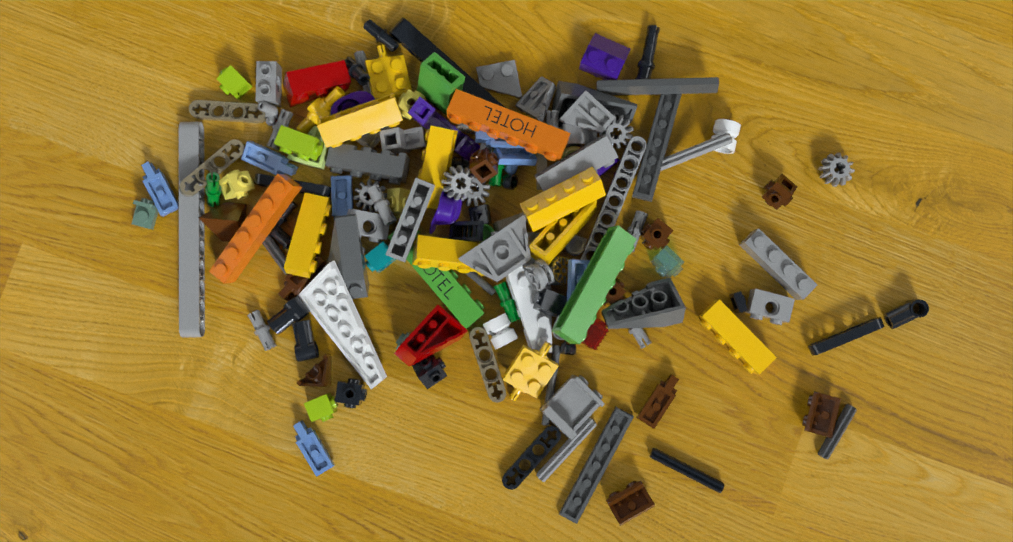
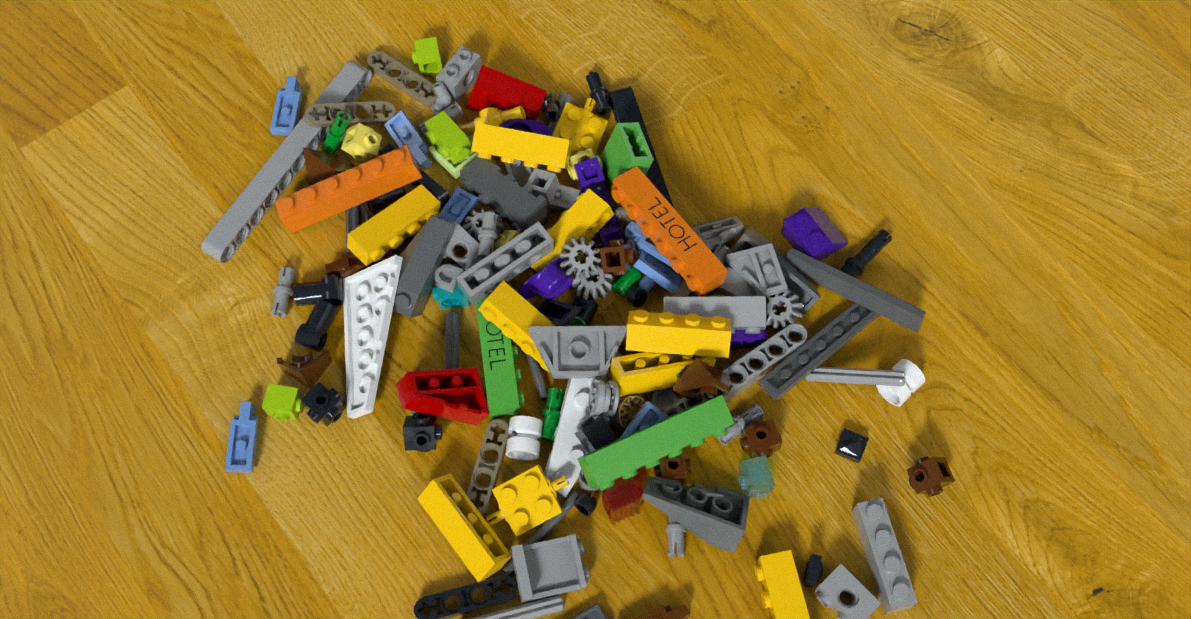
camera: 30 degrees right, 20 degrees down
(145, 214) = (257, 122): sand green bracket -> none
(374, 251) = (446, 277): none -> light grey tile
(407, 296) = (452, 340): none -> dark grey axle
(500, 78) = (692, 195): light grey wing -> none
(501, 415) = (464, 527): none -> yellow brick
(599, 221) = (703, 379): none -> reddish brown slope
(715, 200) = (851, 446): none -> black tile
(836, 177) = (1019, 486): light grey gear -> none

